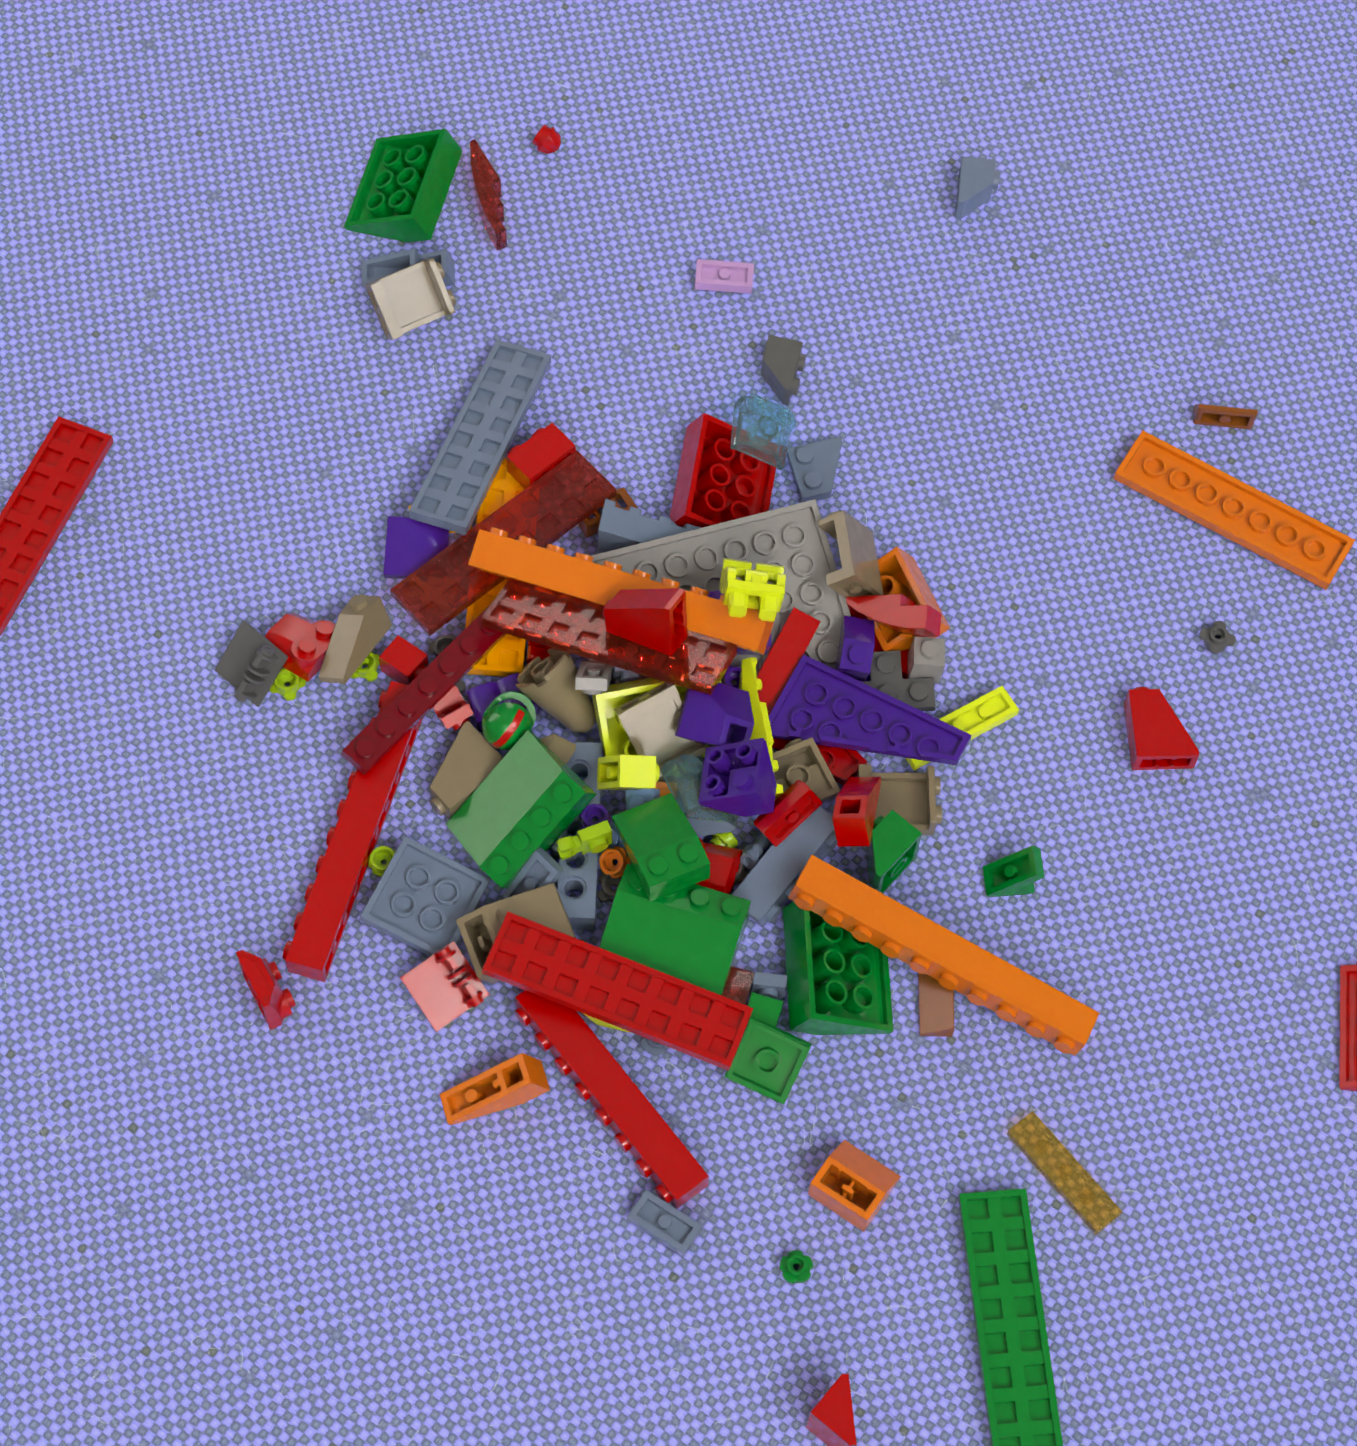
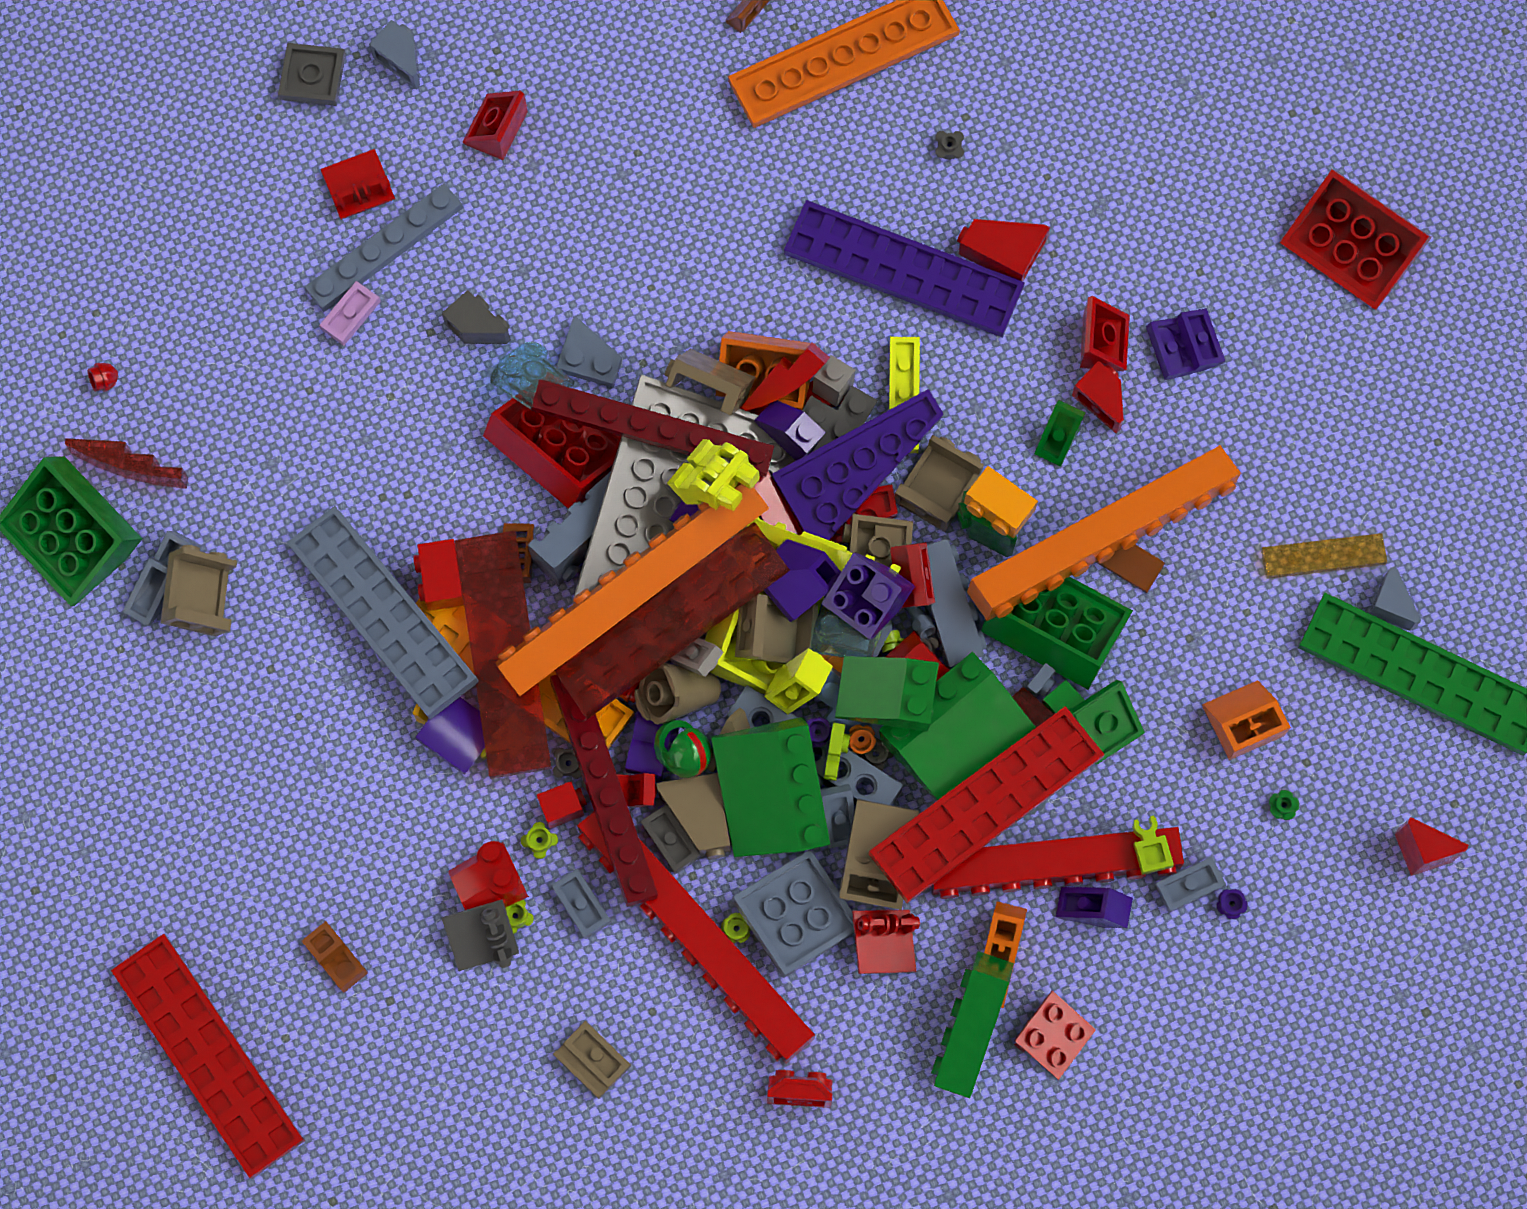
camera: 55 degrees left, 10 degrees up
(169, 570) = (334, 957): none -> dark orange slope
(196, 811) = (592, 1059): none -> dark tan plate
(328, 727) = (581, 903): none -> sand blue plate
(354, 637) = (516, 834): dark tan slope -> none
(411, 1095) = (973, 1025): none -> green wedge
(426, 764) = (670, 839): none -> dark grey plate
(448, 1180) = (1054, 1035): none -> hinge
(589, 1149) = (1094, 906): none -> dark purple slope
(649, 617) = (687, 578): red slope -> none
(664, 1265) = (1231, 895): none -> dark purple plate
(668, 1161) = (1151, 851): none -> lime plate
(773, 532) = (640, 423): none -> dark red plate
(803, 270) = (384, 246): none -> sand blue plate
(839, 221) = (357, 184): none -> red hinge
(856, 811) = (946, 517): red slope -> none
(899, 840) = (1000, 502): none -> light orange brick
(908, 137) = (311, 74): none -> dark grey plate
(968, 290) = (497, 123): none -> red slope
(1059, 1256) = (1394, 602): none -> sand blue slope
(1075, 666) = (904, 268): none -> dark purple plate
(1078, 889) = (1102, 395): none -> red slope
(1133, 860) = (1104, 335): none -> red slope
(1180, 937) = (1185, 344): none -> dark purple slope

